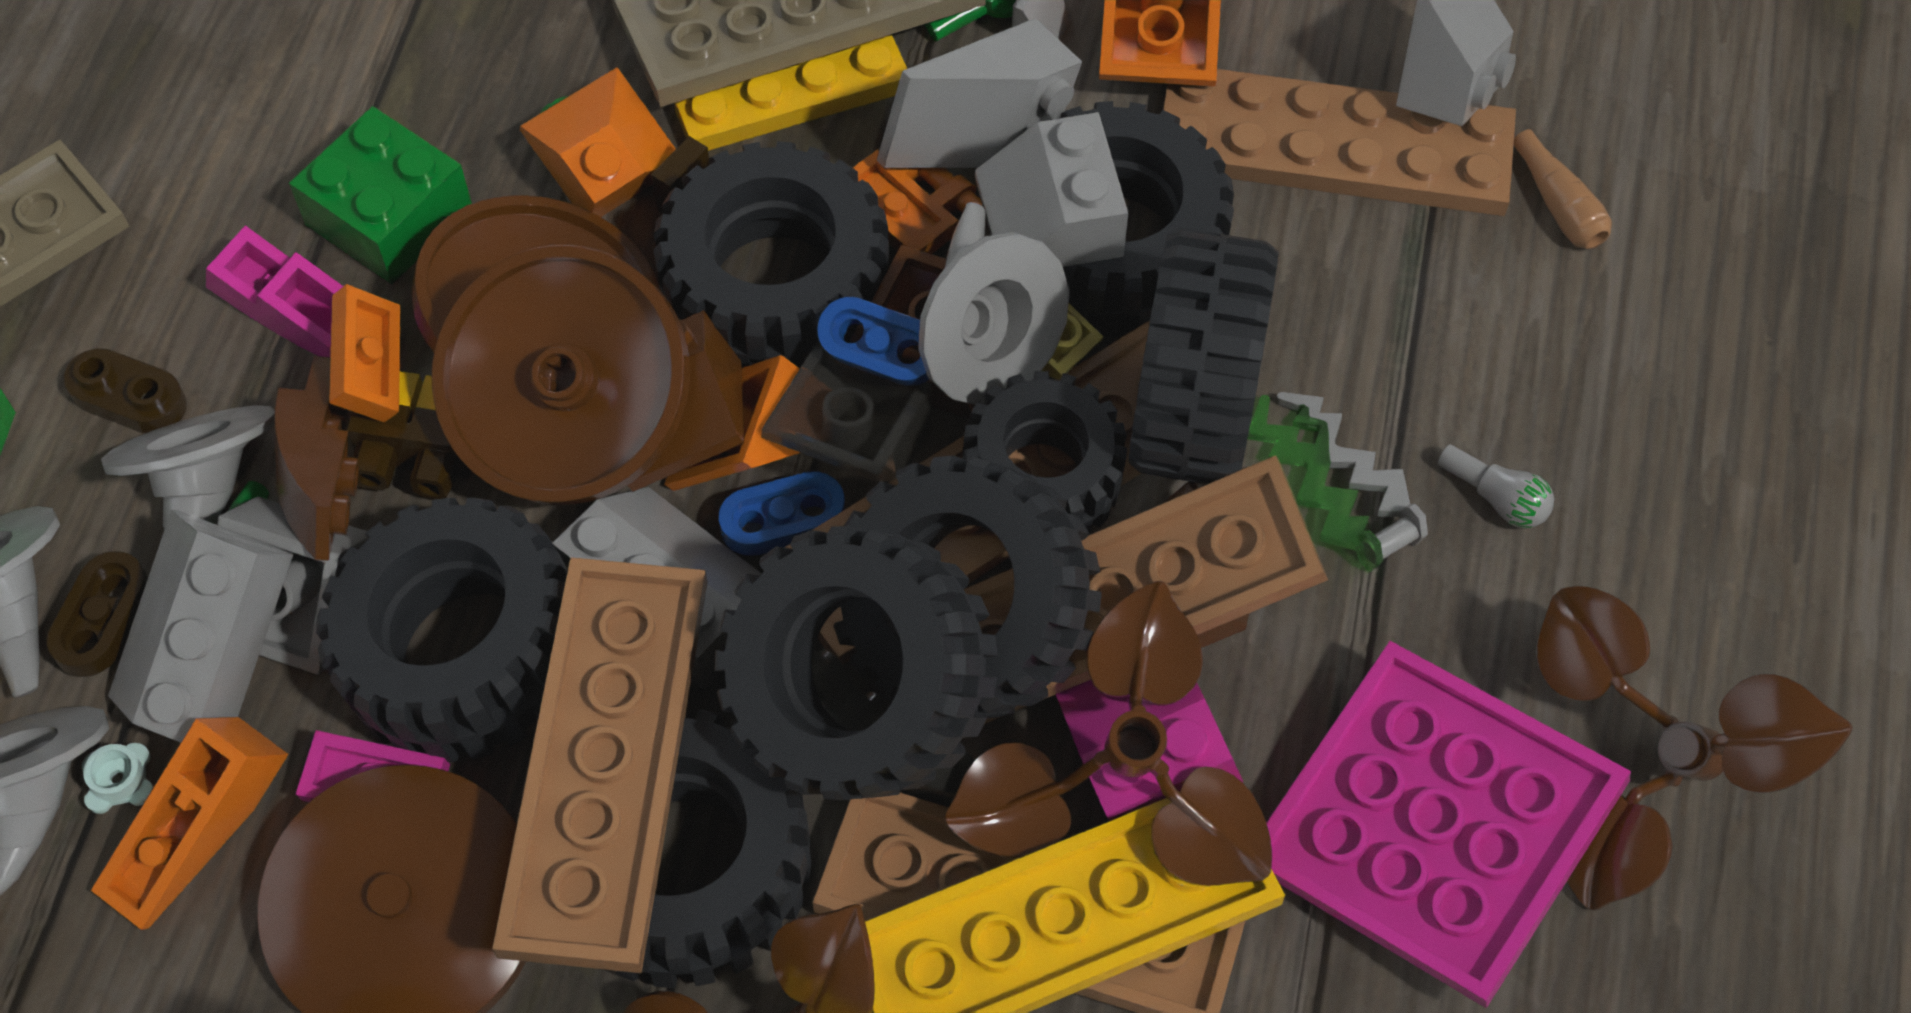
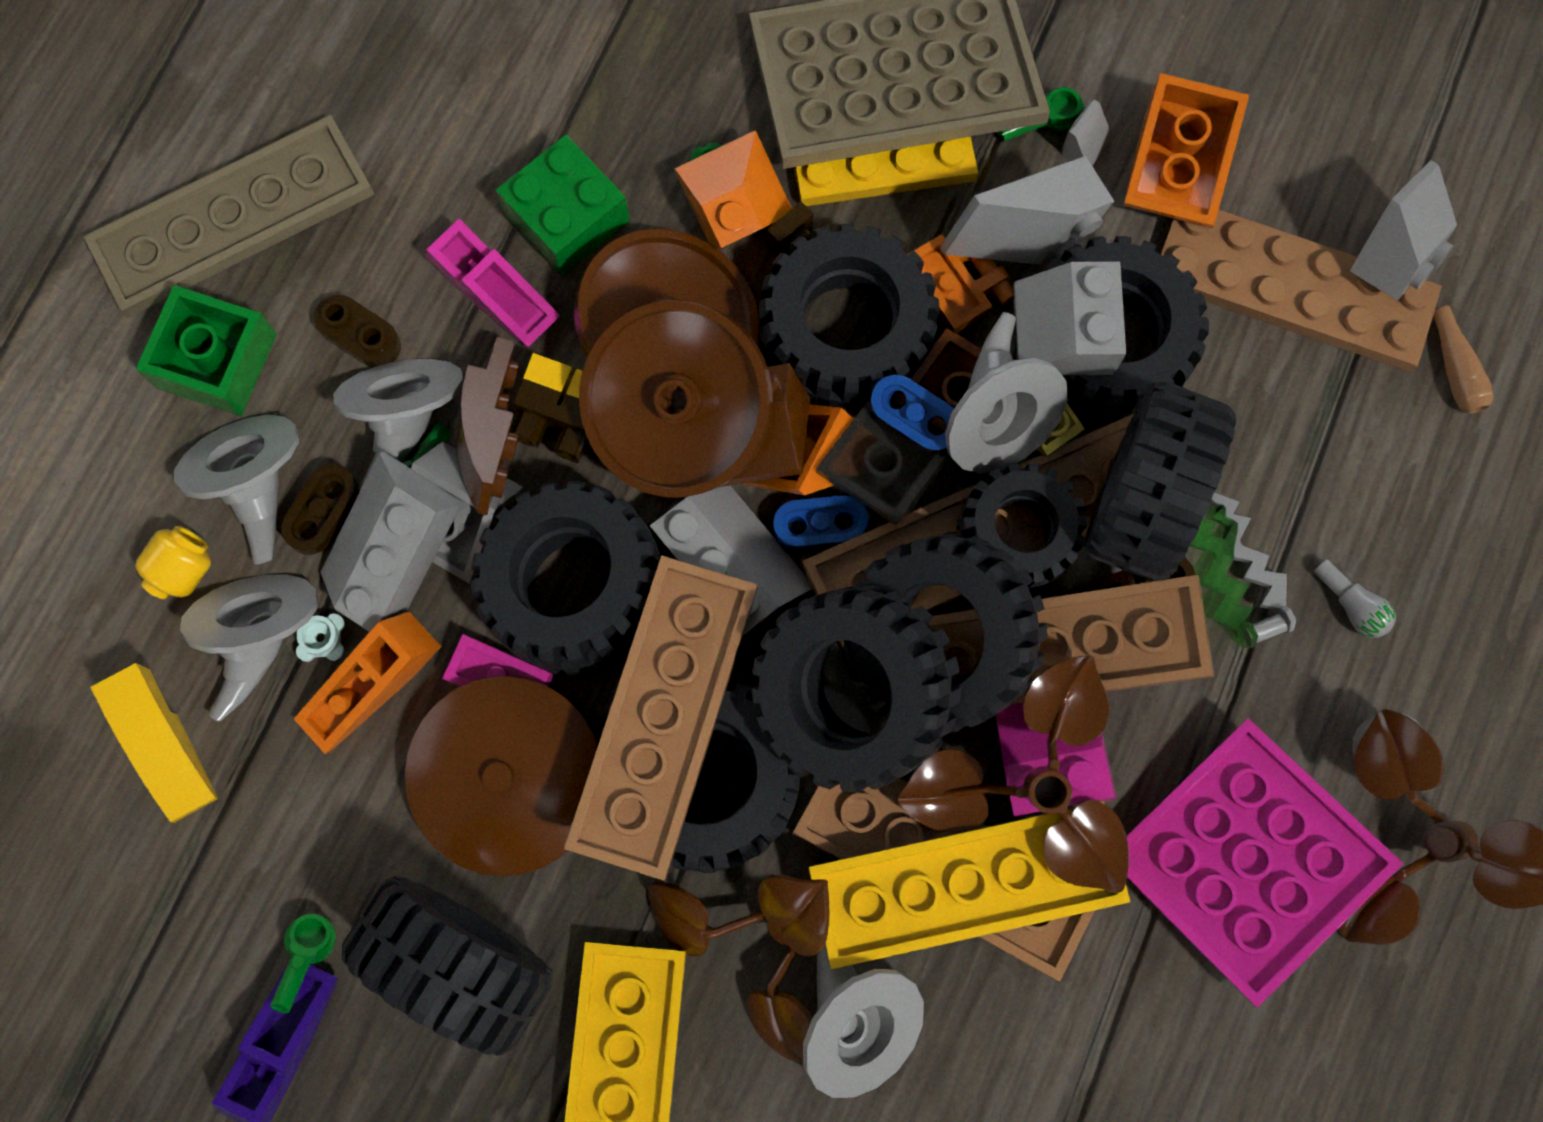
camera: 10 degrees right, 15 degrees up
(365, 353) = (534, 348): orange plate -> none

